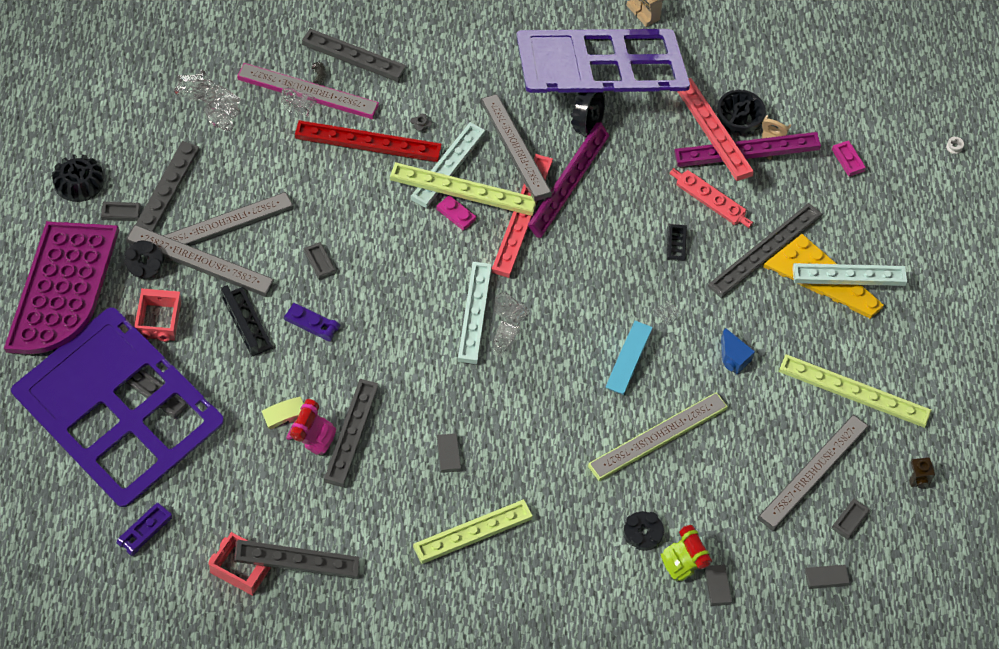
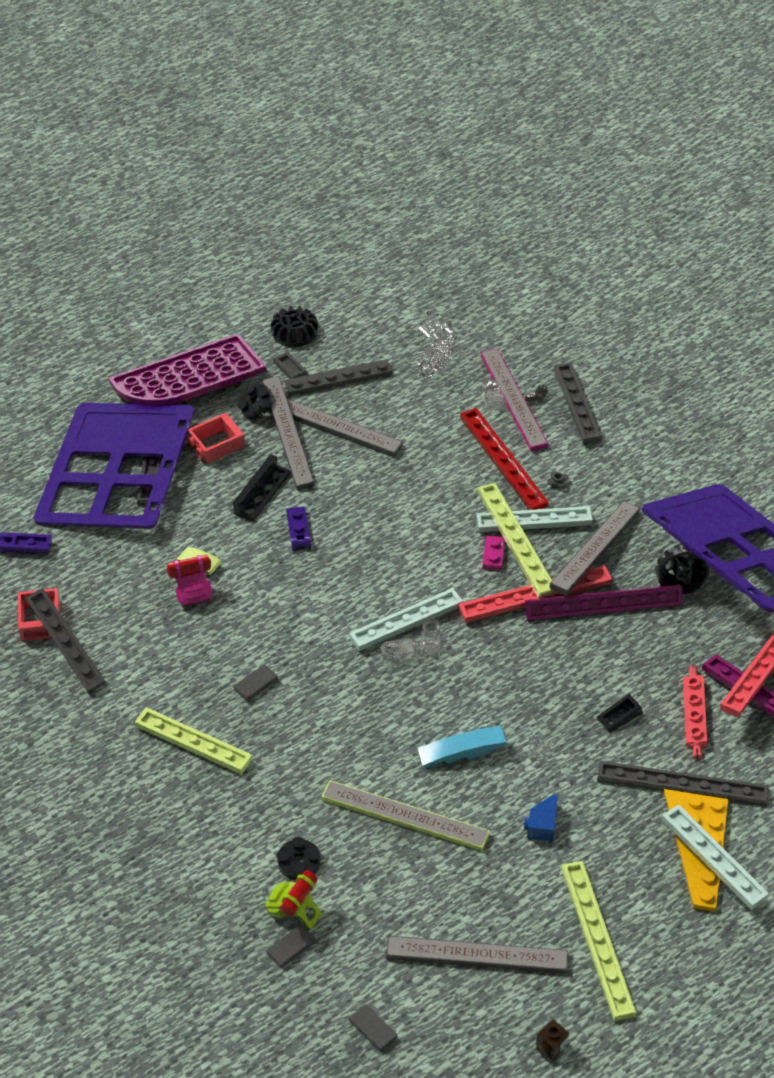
camera: 60 degrees right, 10 degrees down
(319, 261) = (360, 499): dark grey tile -> none
(351, 433) = (217, 610): dark grey plate -> none
(850, 519) = (452, 1013): dark grey tile -> none

